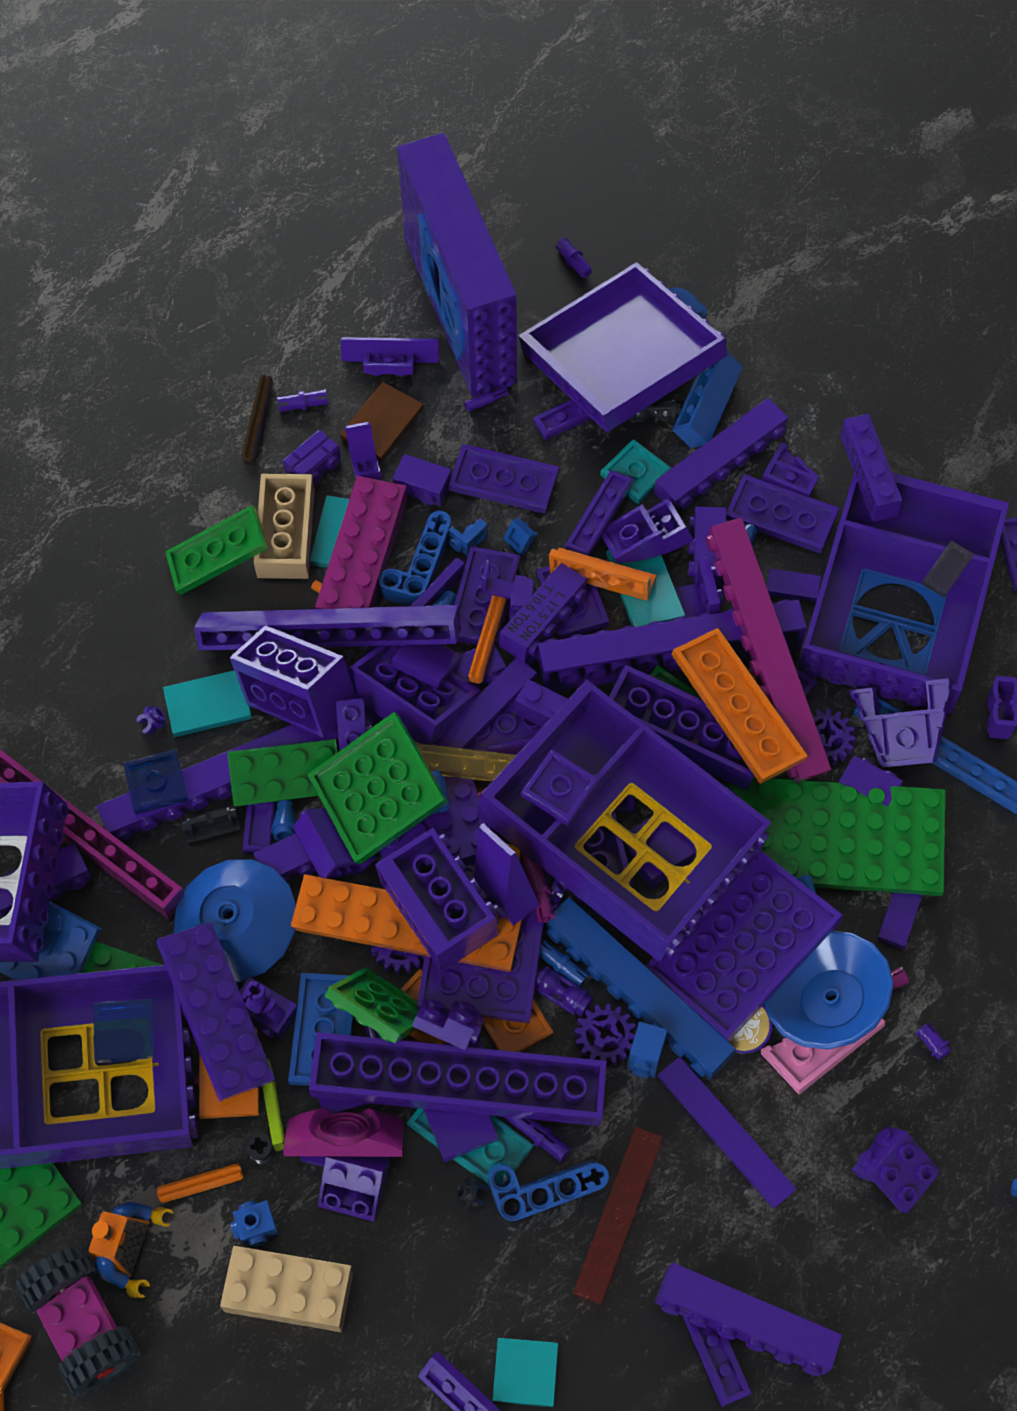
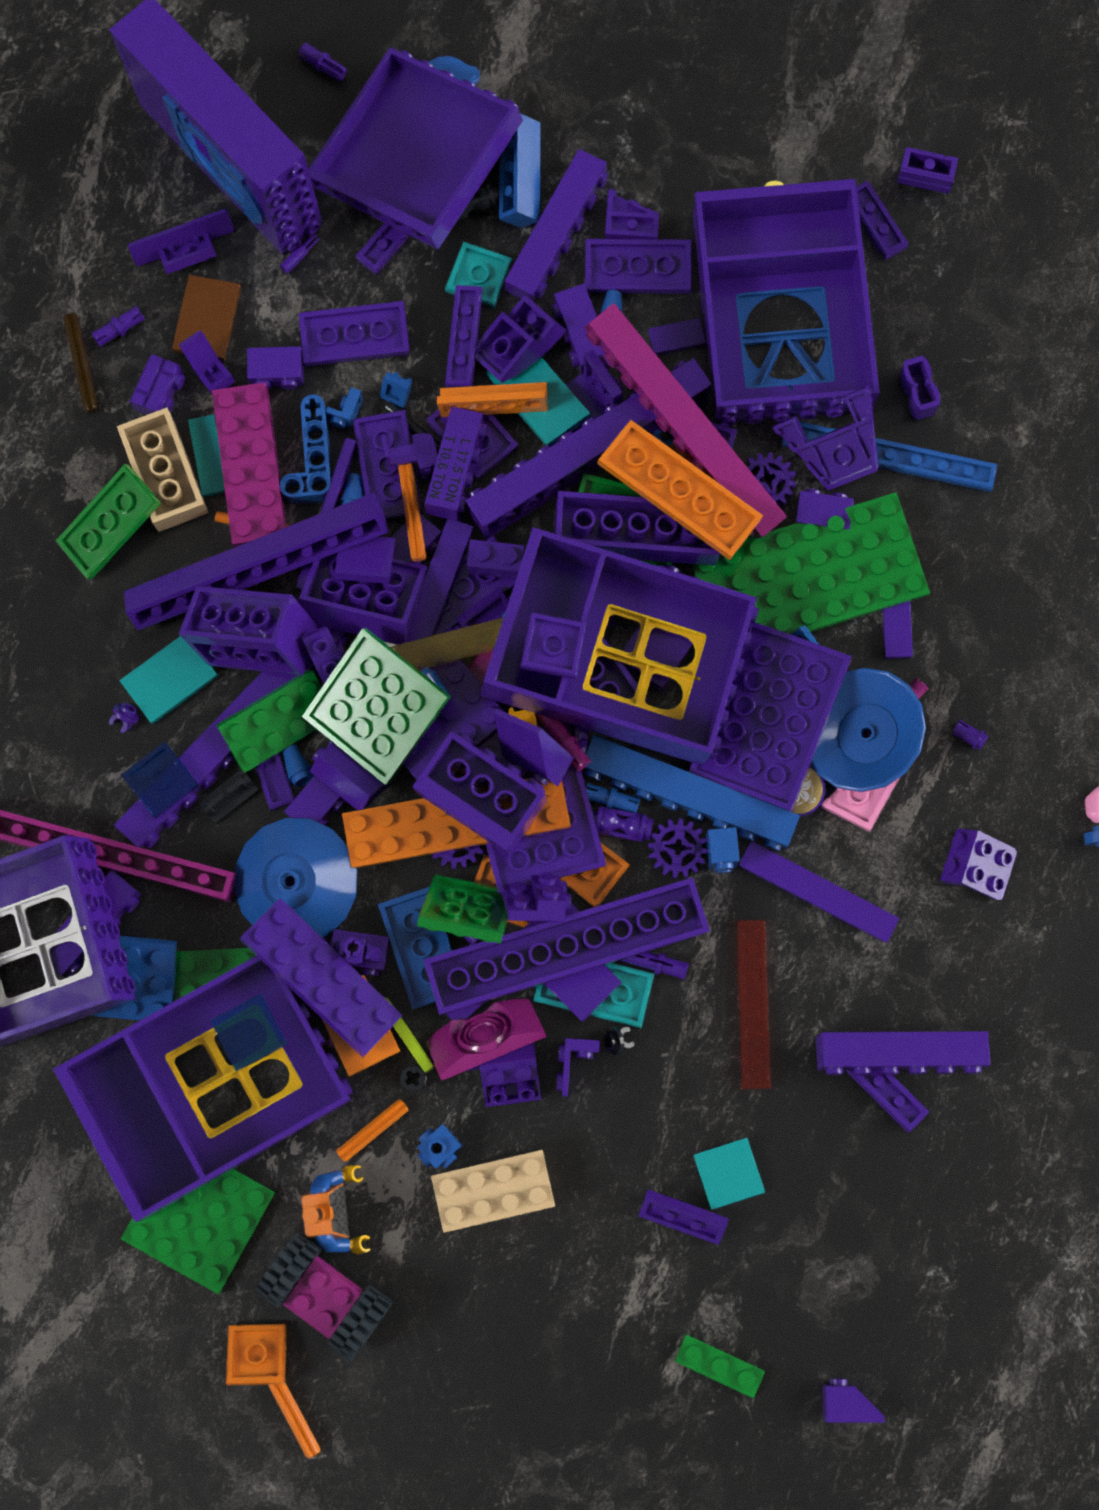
camera: 20 degrees left, 15 degrees up
(435, 1186) = (583, 1049): none -> dark purple bracket
(551, 1185) = (682, 1003): blue beam -> none
(870, 467) = (712, 194): dark purple brick -> none
(947, 569) = (822, 272): clear smoke tile -> none

